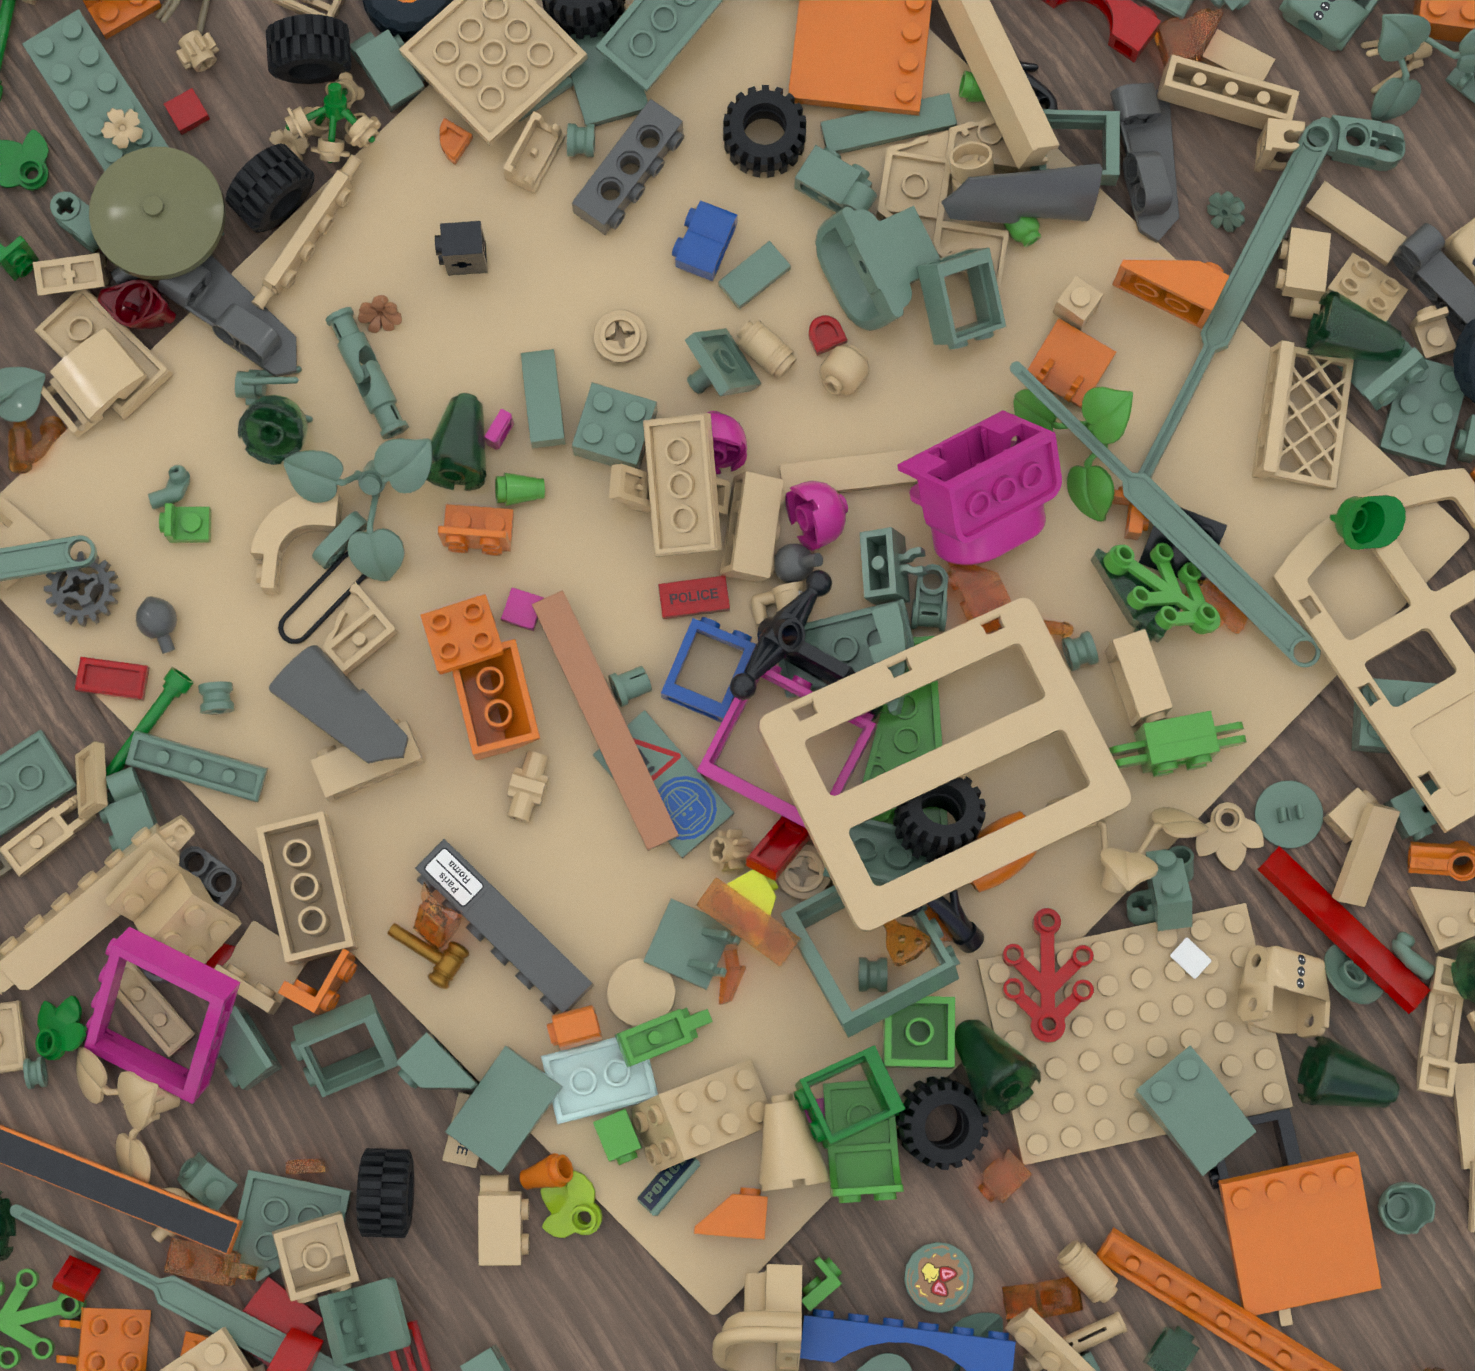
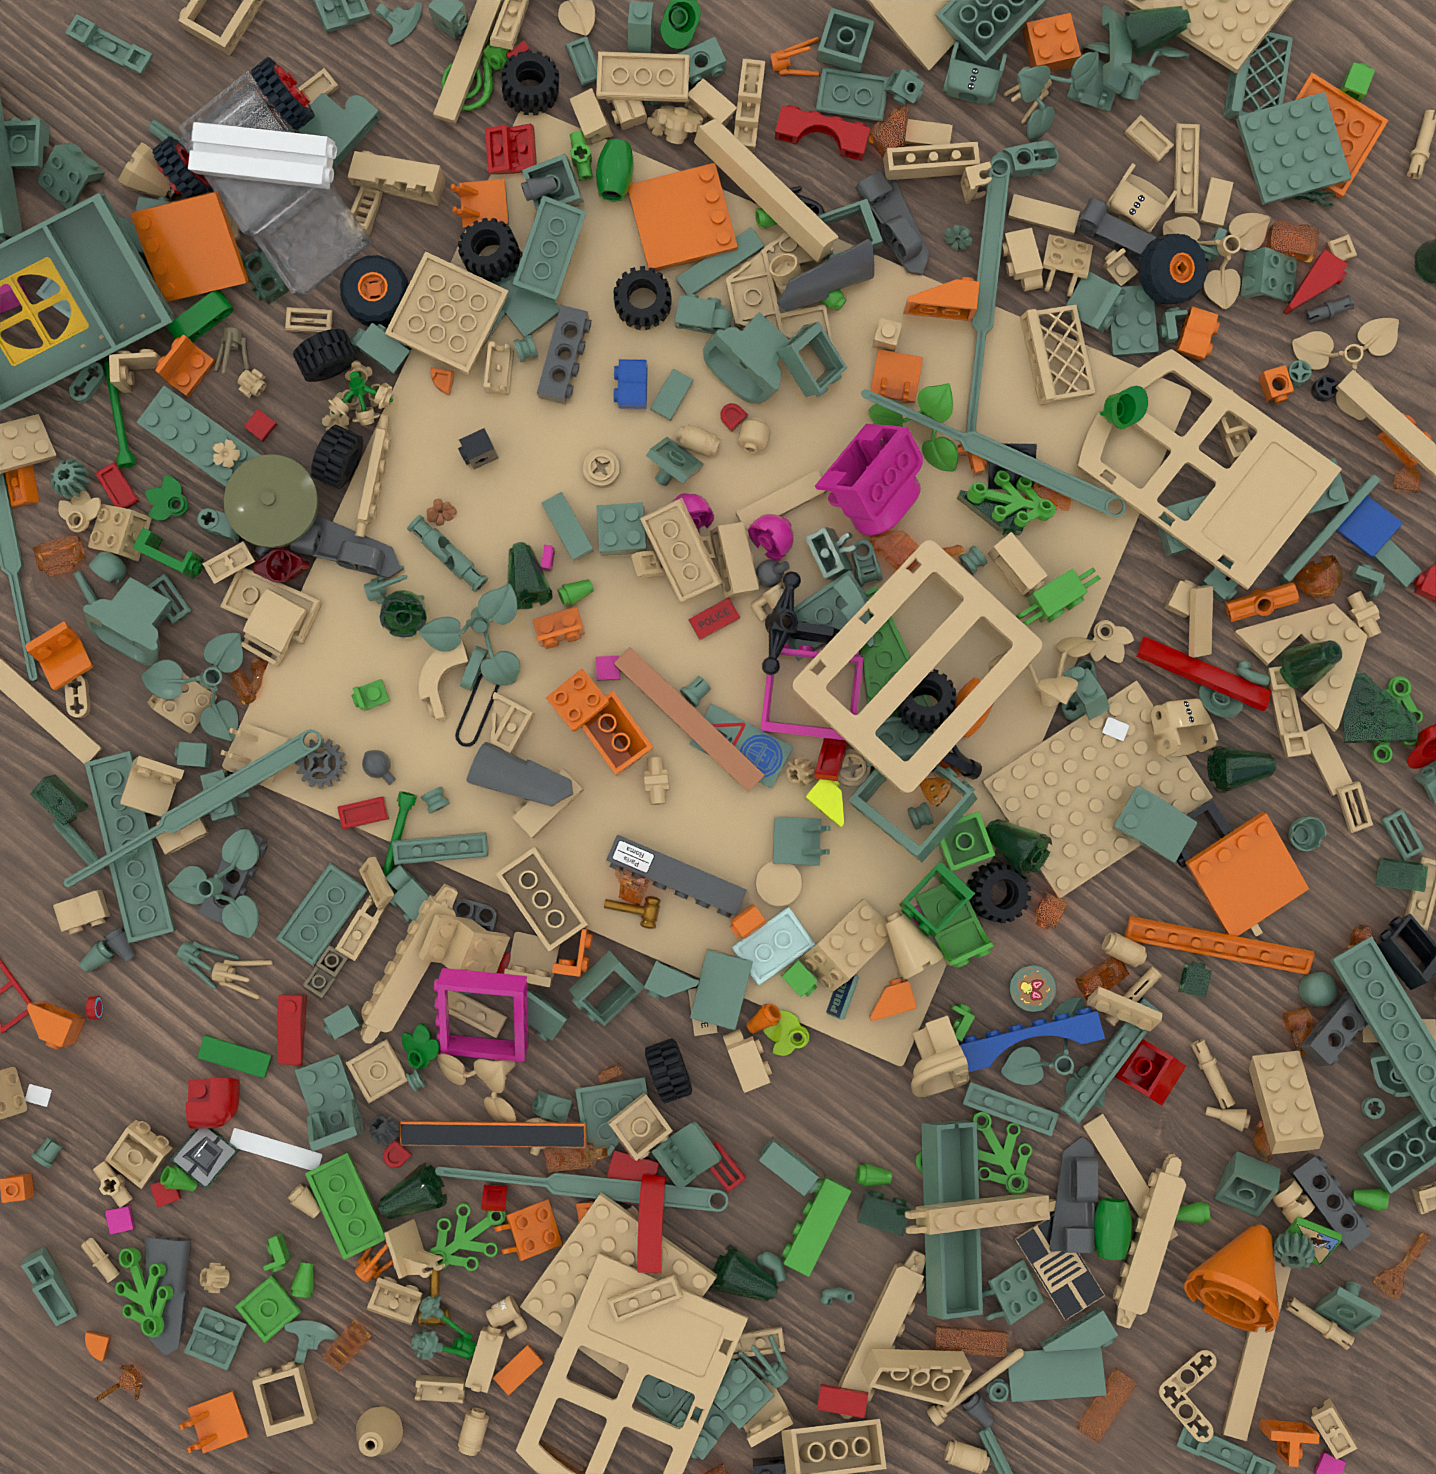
camera: 20 degrees left, 5 degrees up
(175, 489) = (354, 676): sand green arm -> none
(660, 1035) = (802, 905): bright green hinge -> none
(693, 700) = (741, 685): blue window -> none
(731, 981) = (832, 858): clear orange bar -> none
(748, 921) = (831, 813): clear orange plate -> none
(1047, 981) = (1031, 778): red plant -> none
(1289, 814) = (1142, 613): sand green piece -> none
(1351, 332) = (1069, 288): clear green cone -> none

